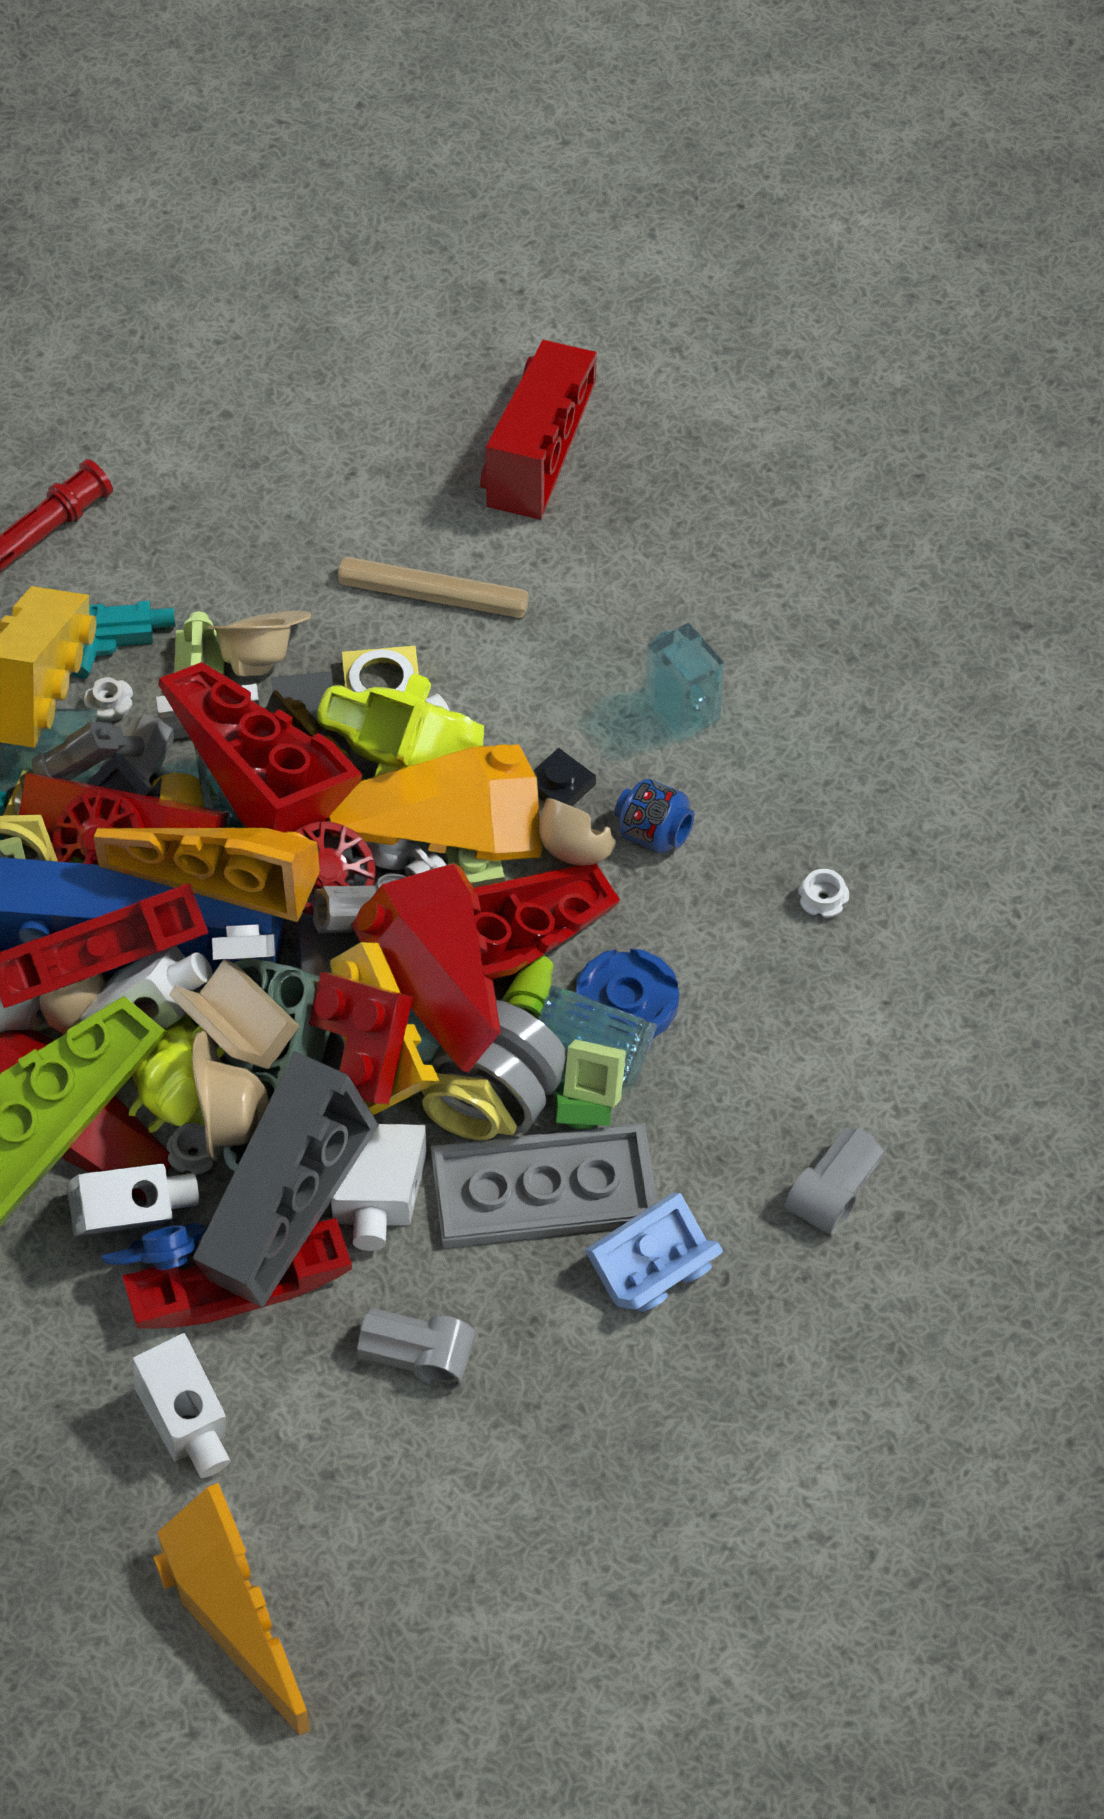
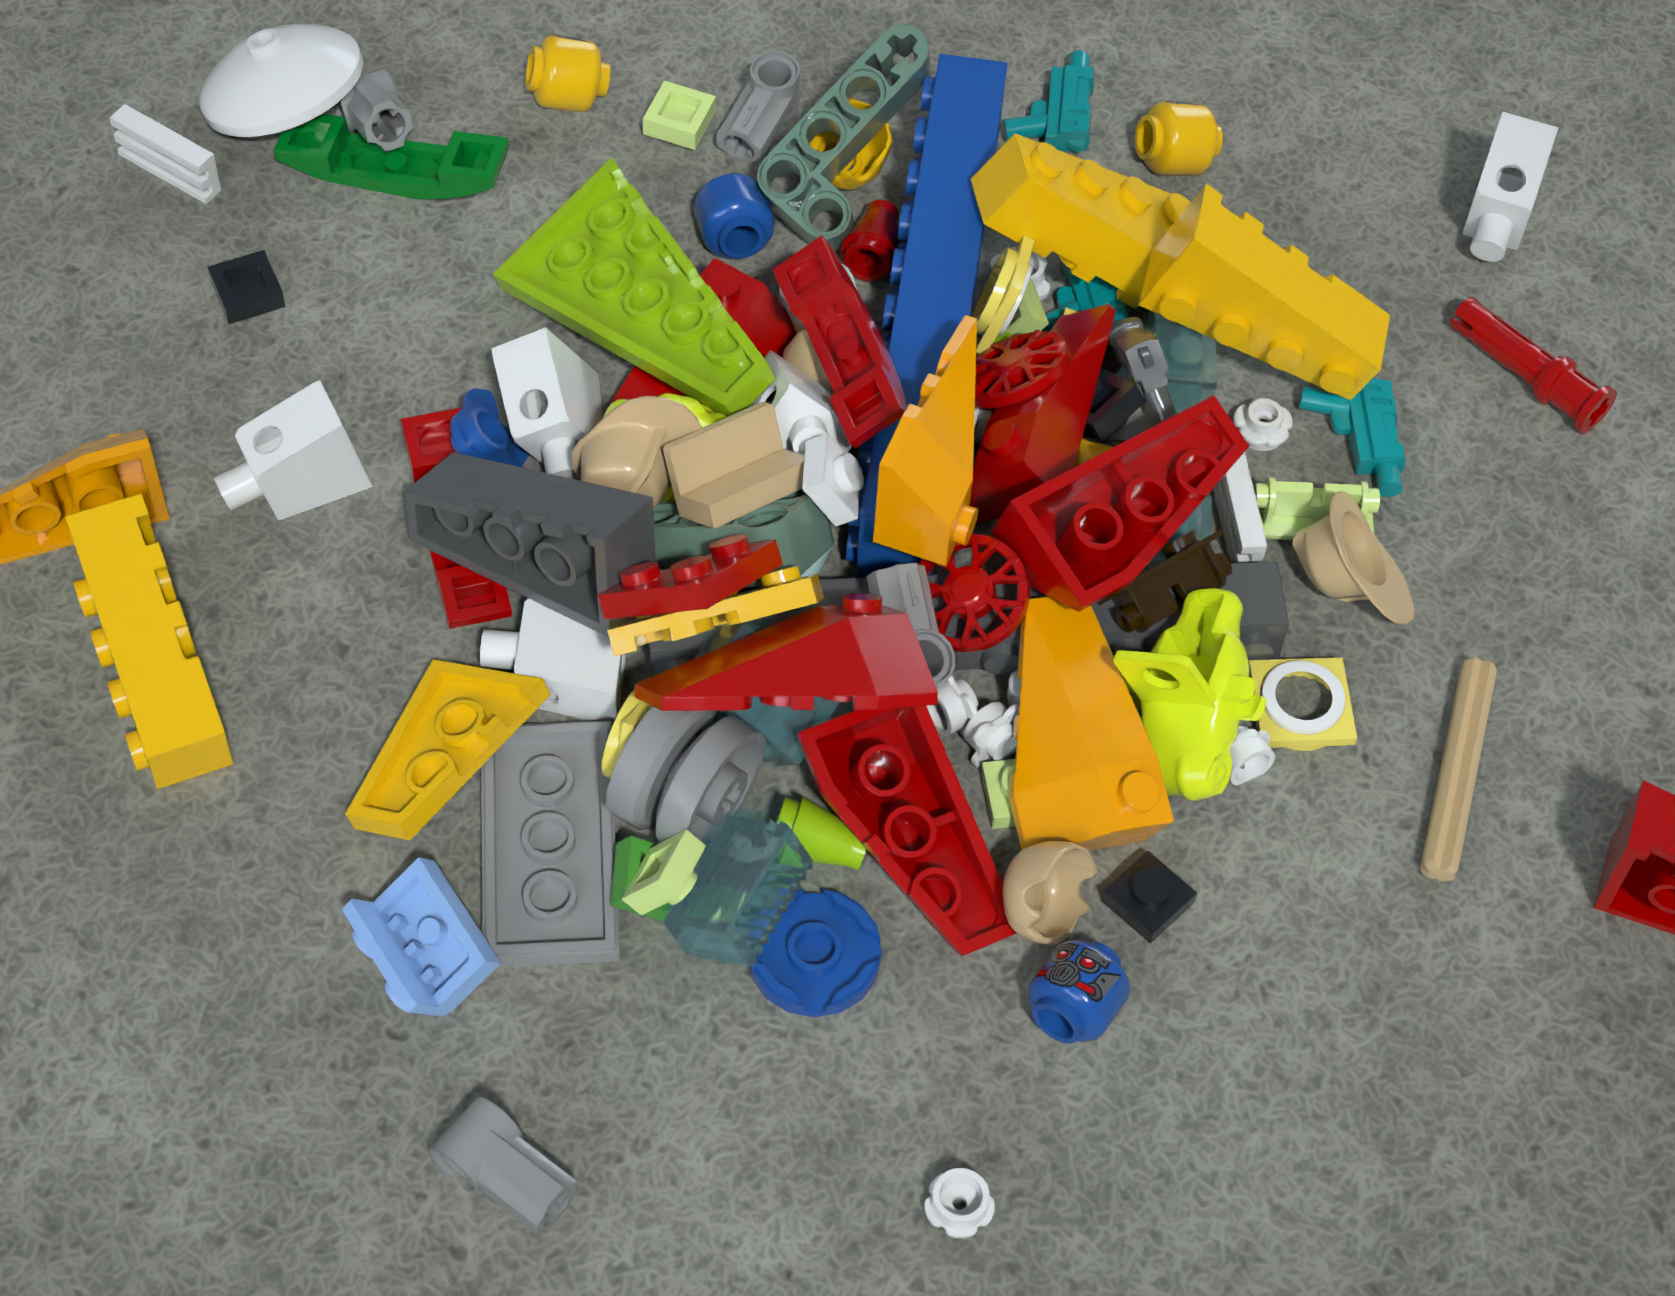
camera: 90 degrees right, 0 degrees up
(390, 1497) = (147, 642): none -> yellow wedge
(429, 1349) = (343, 696): light grey piece -> none
(465, 1263) = (440, 743): none -> yellow wing
(684, 681) = (1286, 1028): clear light blue brick -> none

